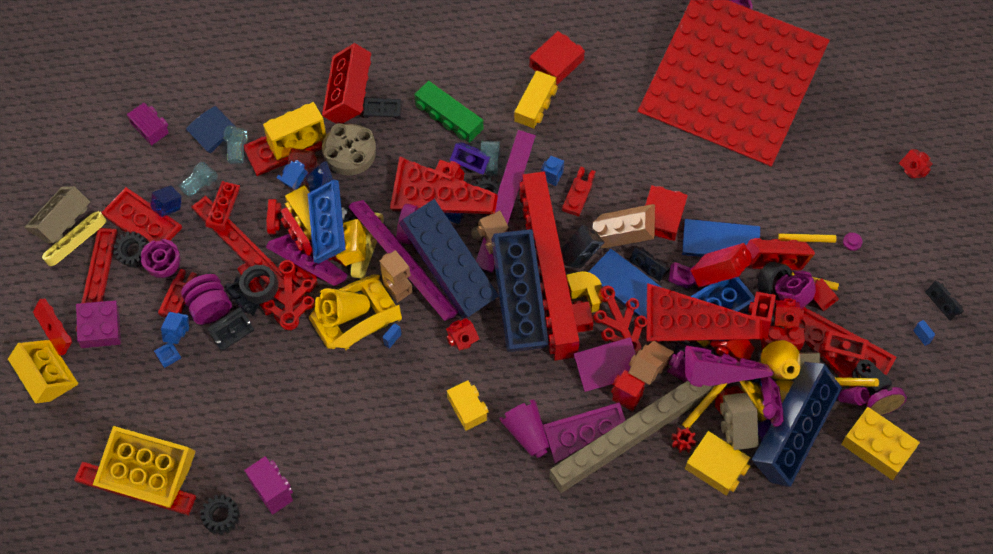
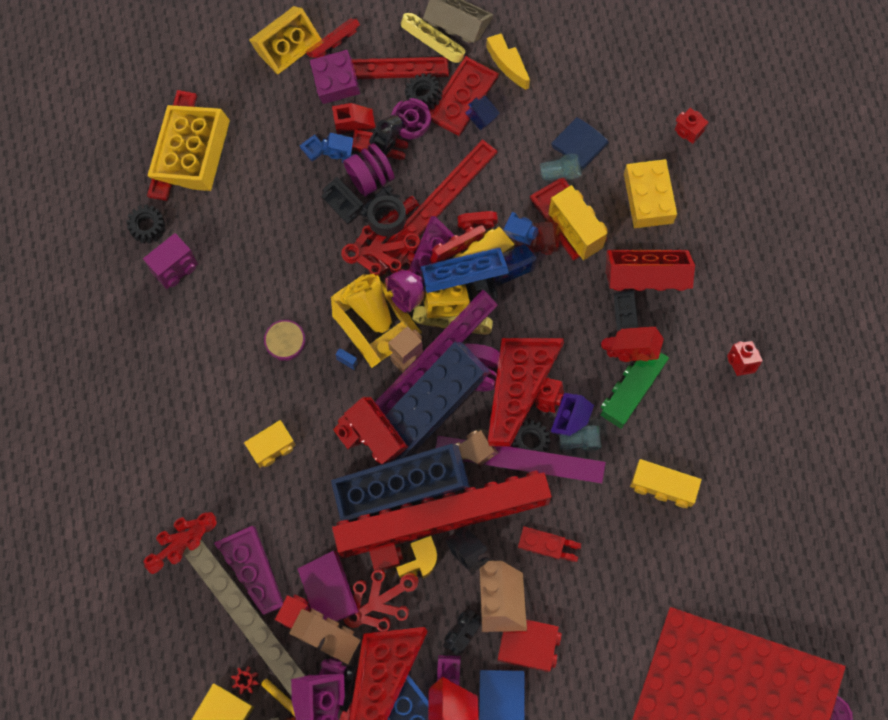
camera: 85 degrees right, 10 degrees up
(116, 176) = (508, 60): none -> yellow slope
(146, 315) = (352, 117): none -> red slope
(148, 123) = (577, 79): magenta brick -> none
(174, 280) = (386, 133): none -> black piece
(201, 176) = (518, 142): clear light blue piece -> none
(215, 40) = (690, 125): none -> red brick
(222, 206) = (473, 167): red tile -> none
(273, 79) = (650, 193): none -> yellow brick
(338, 271) = (406, 288): none -> magenta cylinder
(349, 149) = (566, 283): dark tan piece -> none
(363, 391) = (284, 340): none -> pearl gold tile
(414, 103) = (634, 344): none -> red hinge
(435, 29) = (744, 358): none -> red brick
(470, 303) = (375, 430): none -> red brick
(527, 428) = (247, 508): magenta cone -> none
(551, 485) = (189, 539): none -> red plant
(553, 170) = (569, 510): blue brick -> none
(557, 57) = (728, 504): red brick -> none
(625, 279) = (436, 604): blue tile -> none

